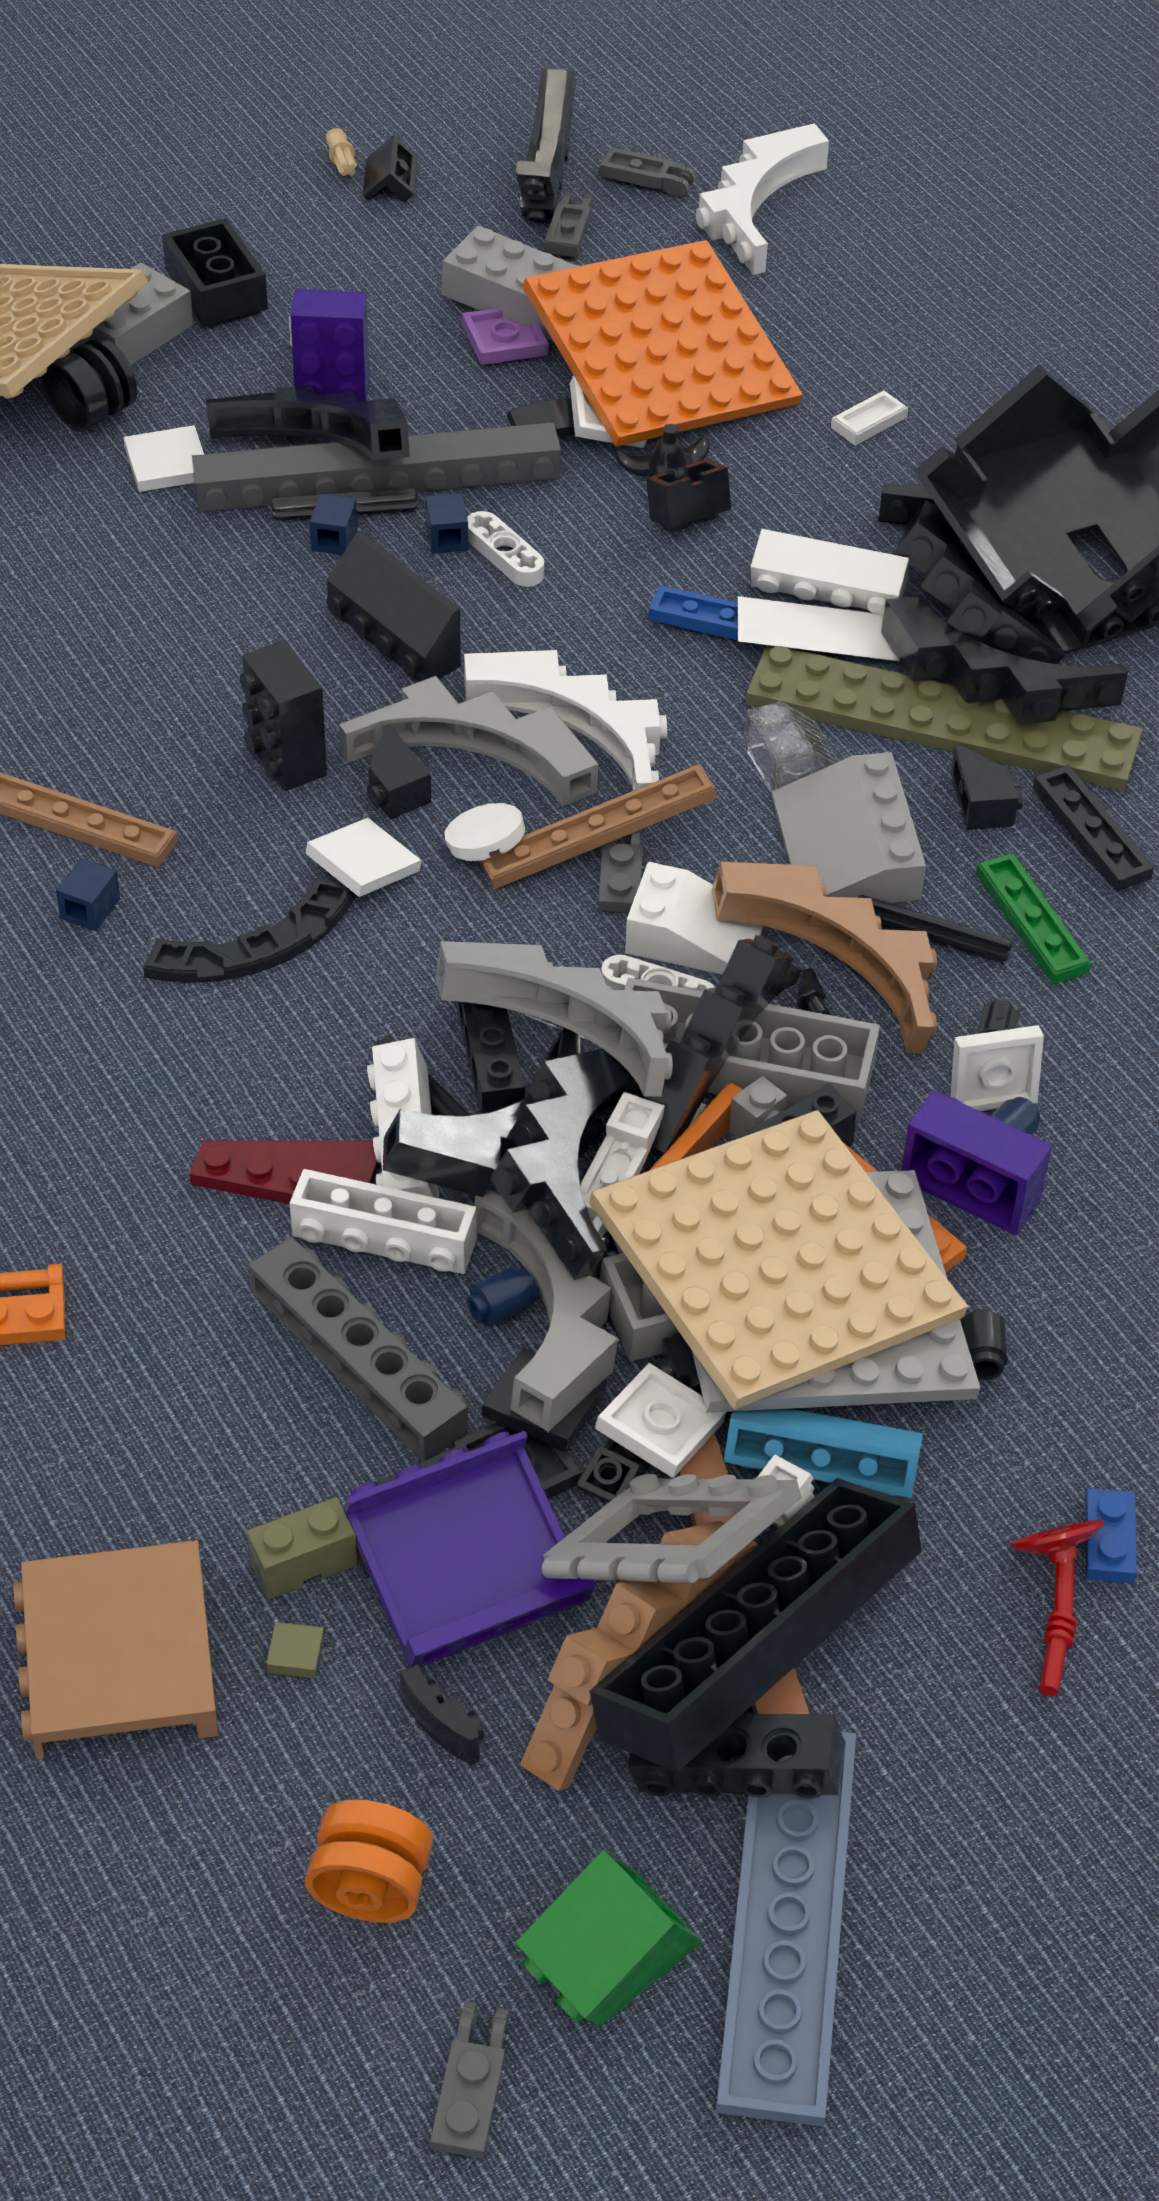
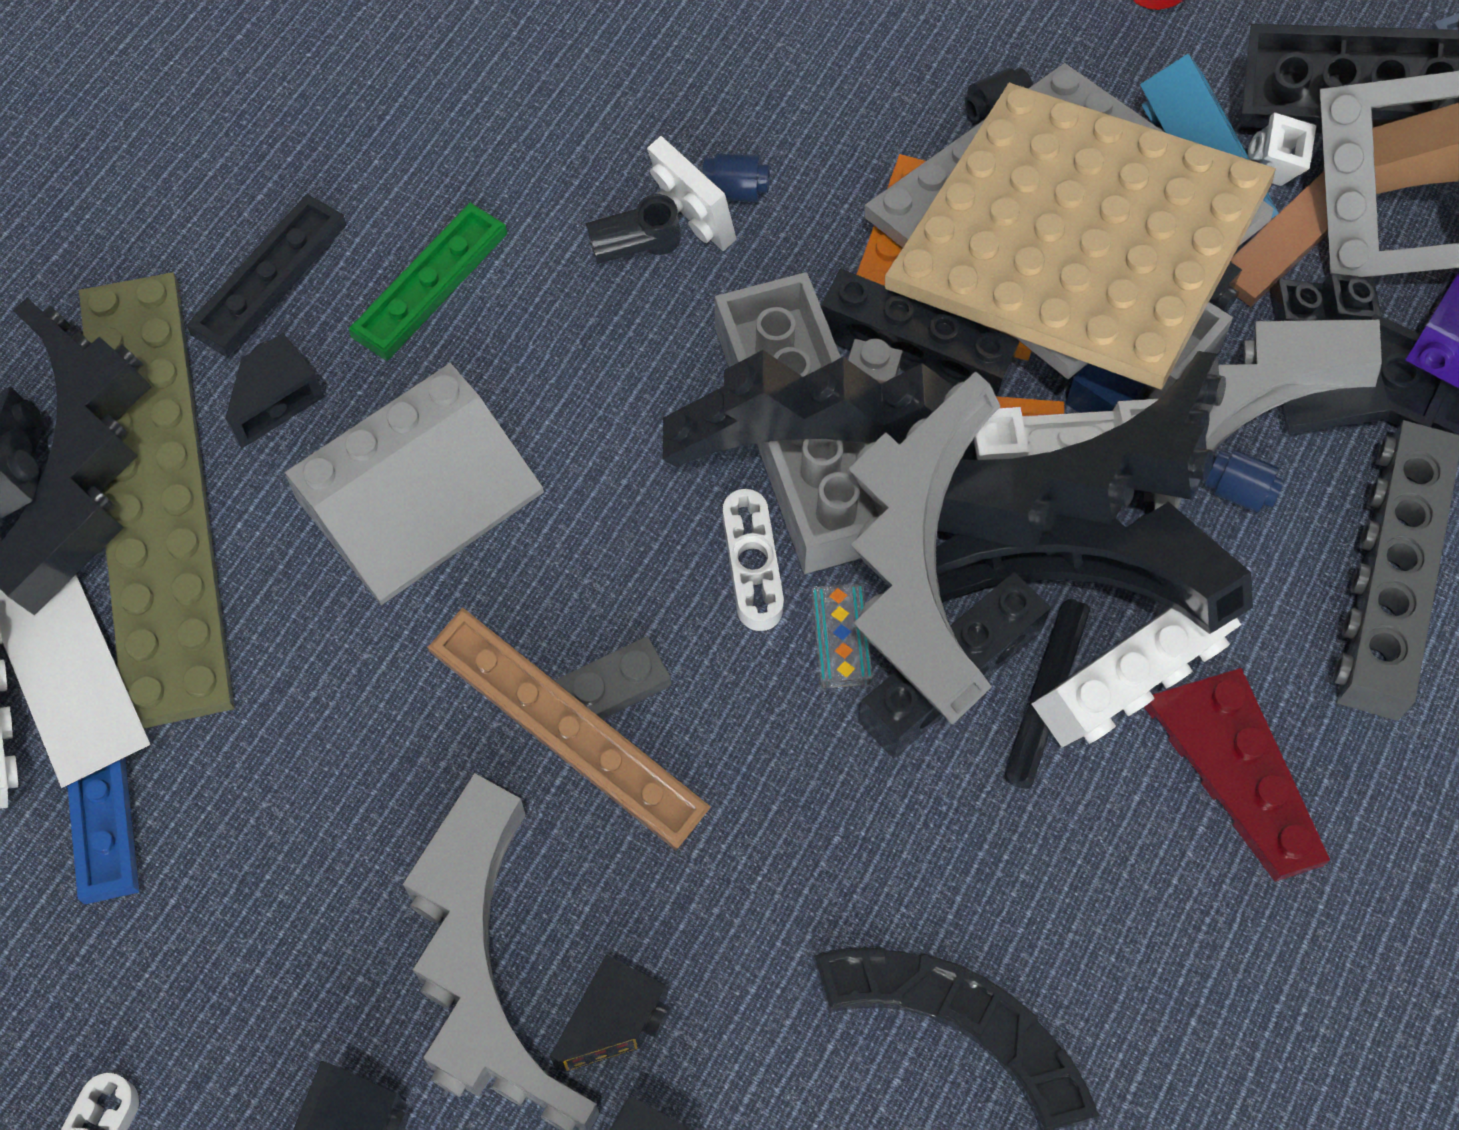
camera: 120 degrees left, 15 degrees up
(363, 857) = (766, 972): white tile -> none
(383, 1221) = (1271, 639): white brick -> none
(484, 831) = (643, 854): white tile -> none
(535, 681) = (348, 942): white arch -> none
(659, 1420) = (1290, 270): white plate -> none
(678, 922) = (649, 570): white slope -> none
(785, 744) = (308, 605): clear slope -> none
(811, 993) = (652, 427): black bar -> none
(847, 927) = (589, 355): medium nougat arch -> none
(942, 930) = (504, 354): black axle -> none
(976, 1161) = (818, 177): dark purple brick -> none

